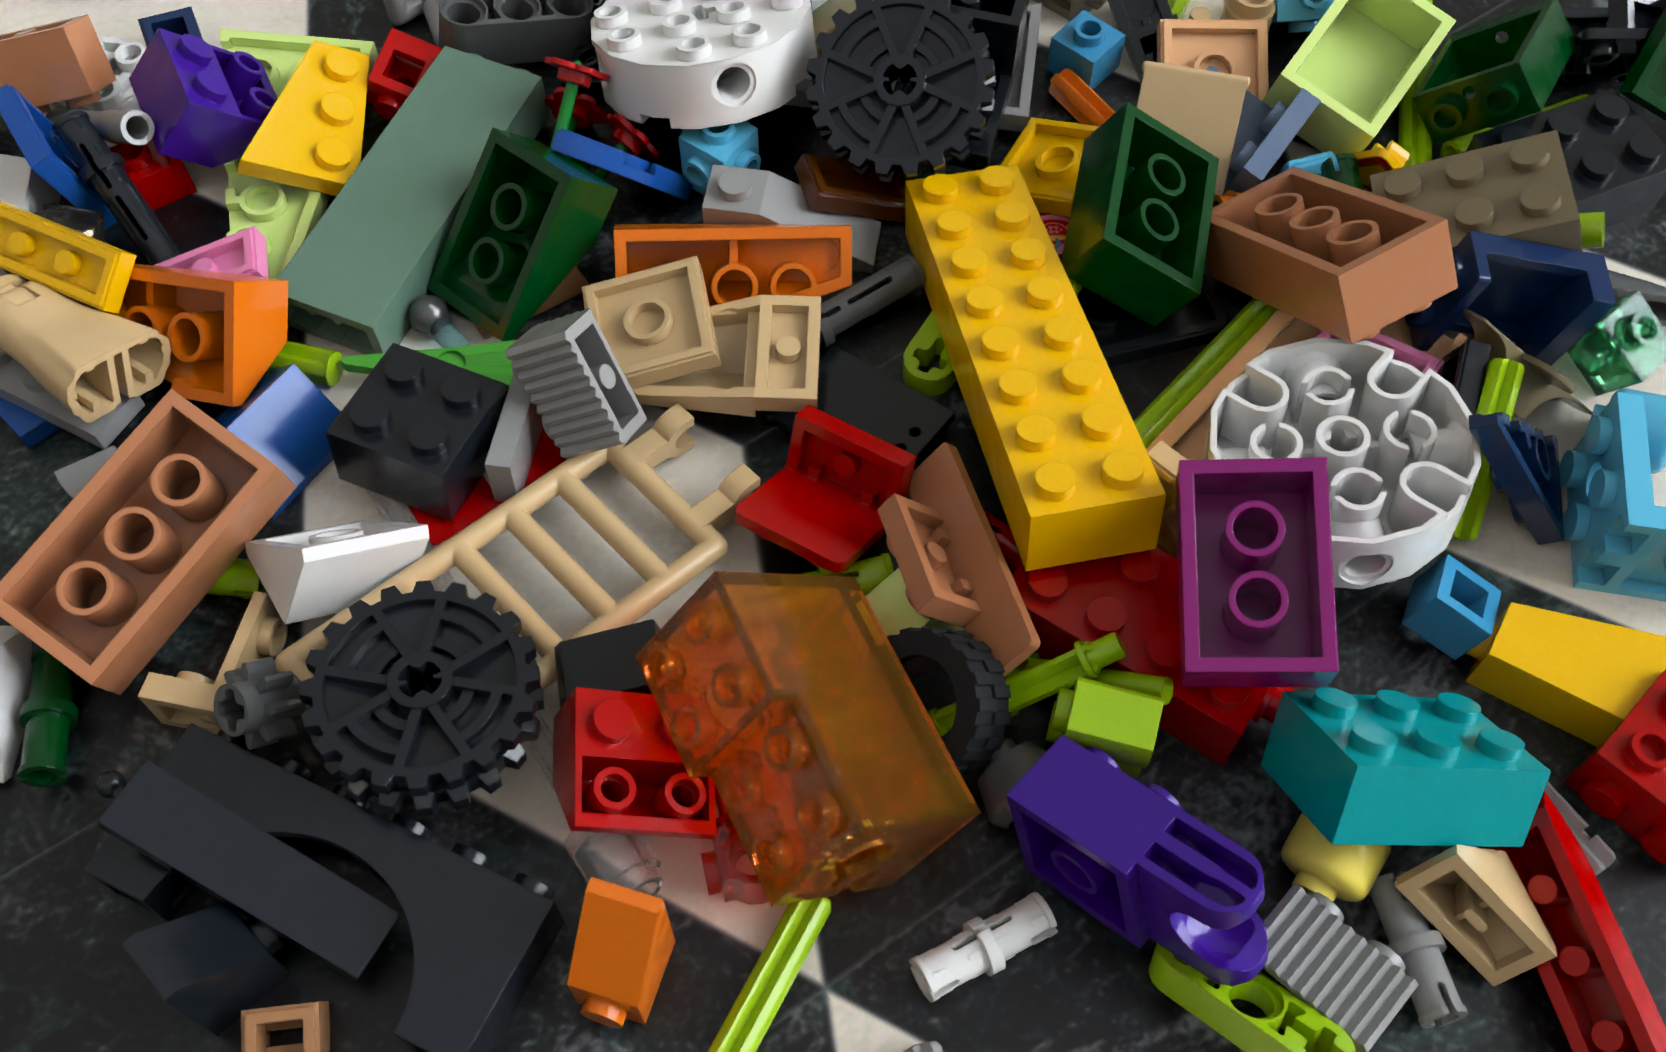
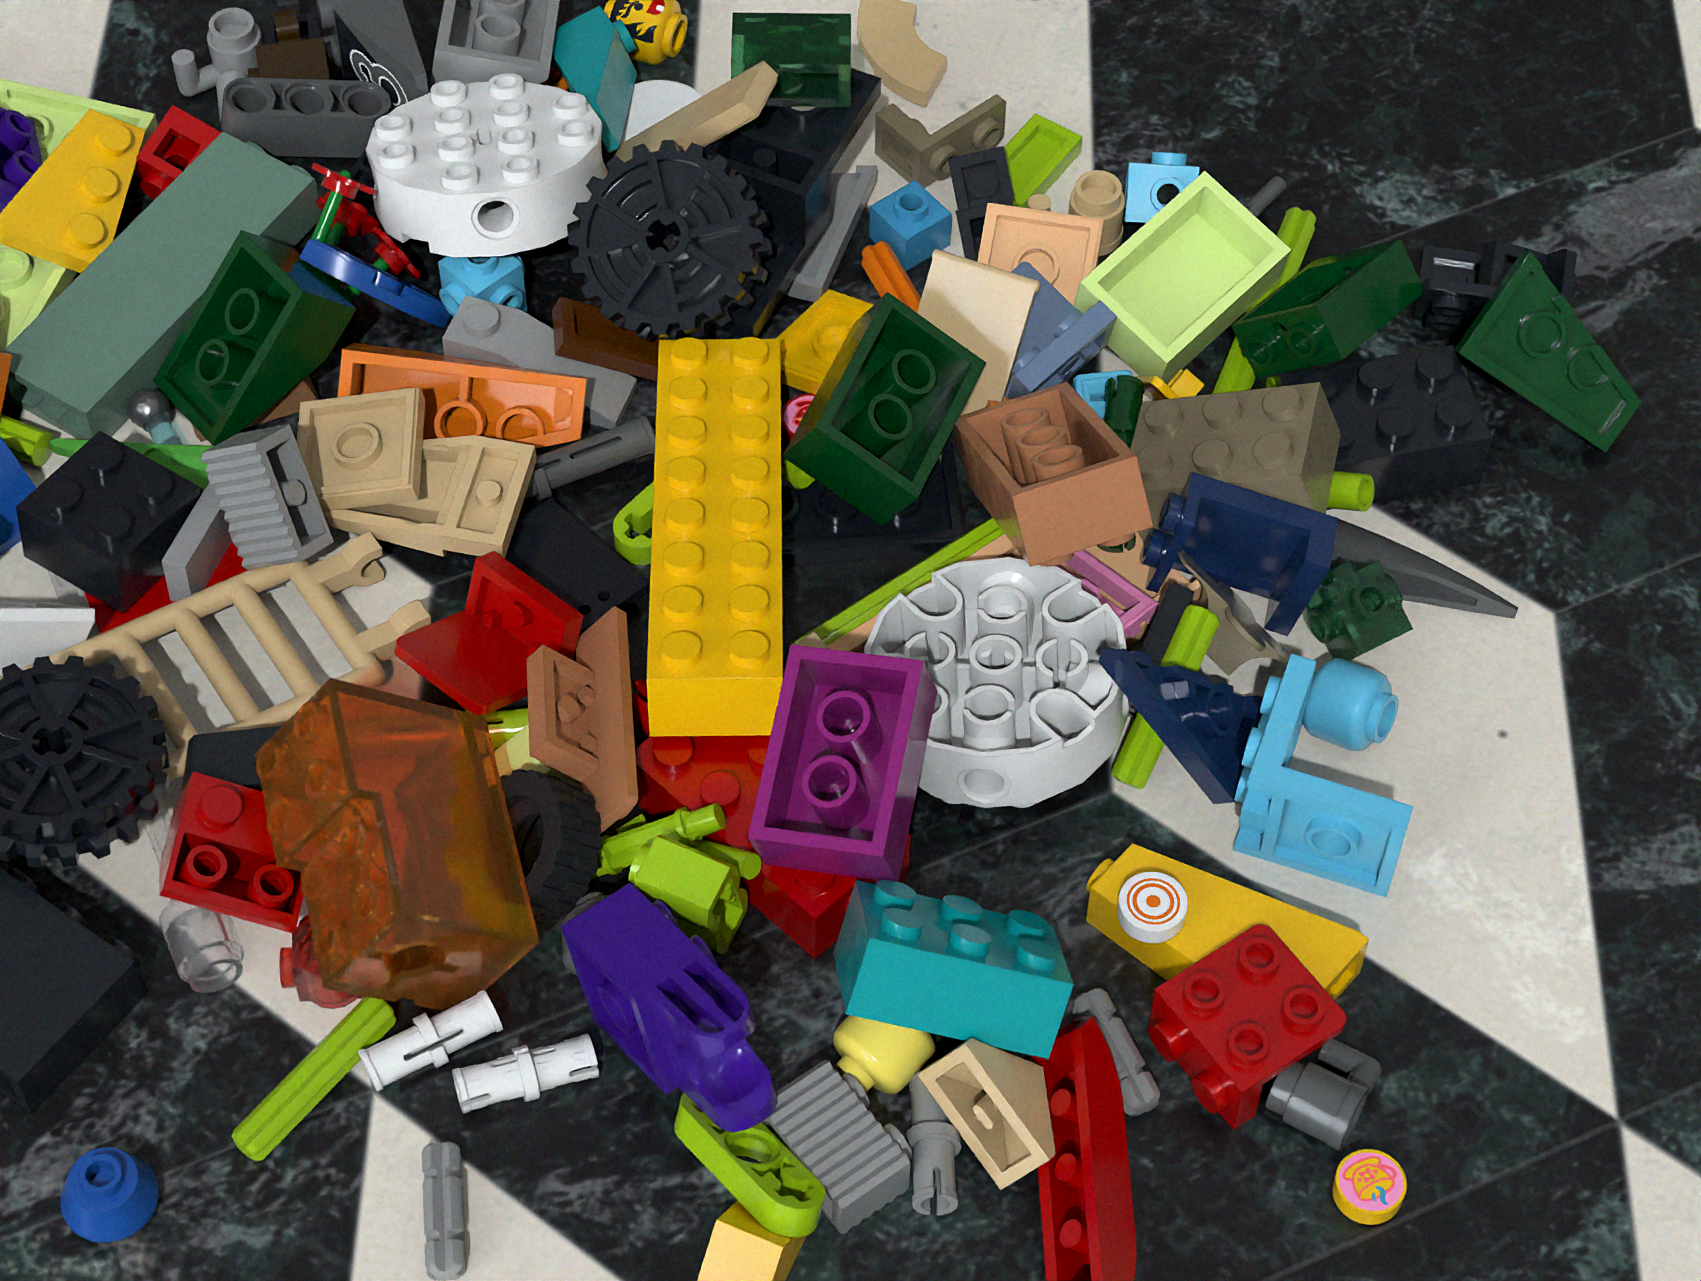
camera: 10 degrees right, 5 degrees down
(619, 953) = (184, 1015): orange slope -> none
(876, 927) = (430, 1040): none -> white pin
(1451, 607) = (1081, 842): dark azure plate -> none
(1563, 666) = (1152, 907): none -> white tile

